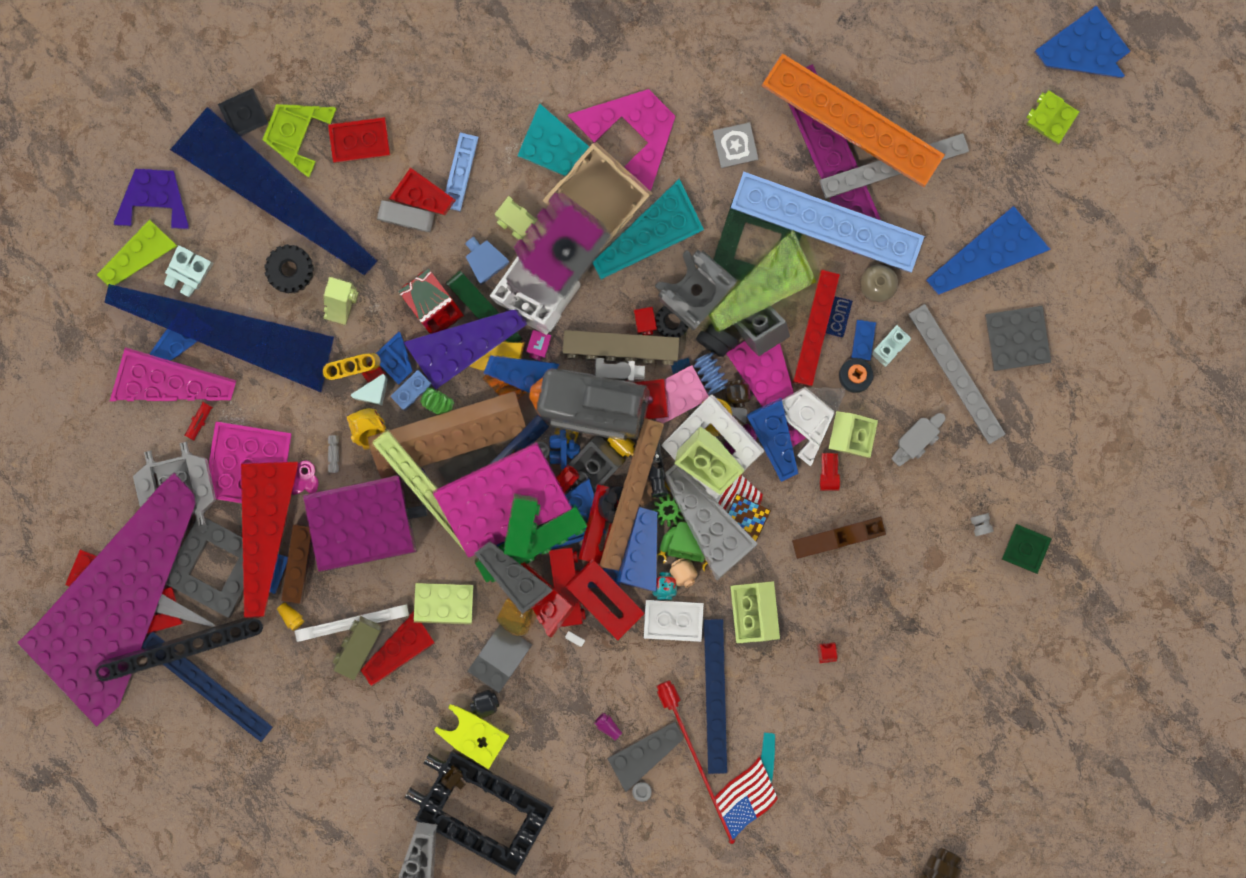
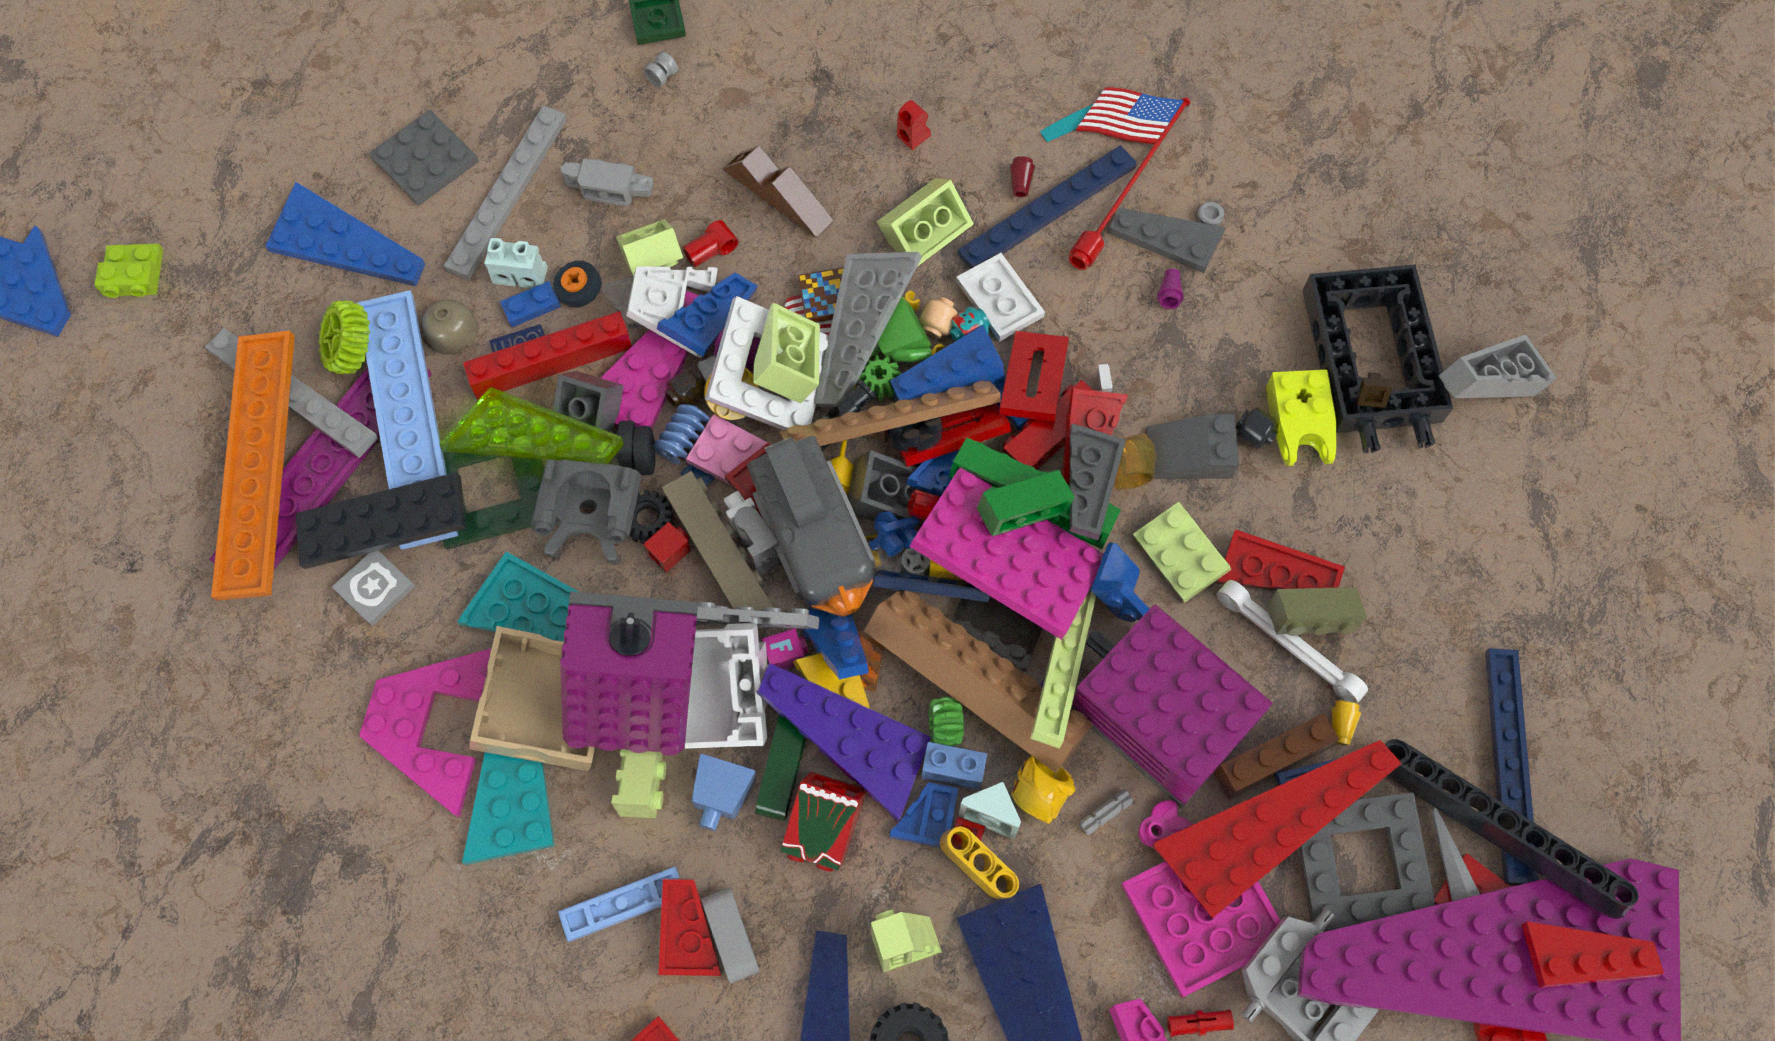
camera: 125 degrees left, 20 degrees down
(91, 631) = (1581, 957): none -> red wing
(448, 550) = (1116, 584): none -> blue bracket
(577, 315) = (771, 617): none -> light grey wing
(747, 695) = (1021, 175): none -> dark red cone
(765, 170) = (380, 520): none -> black plate
(905, 215) = (344, 337): none -> lime gear

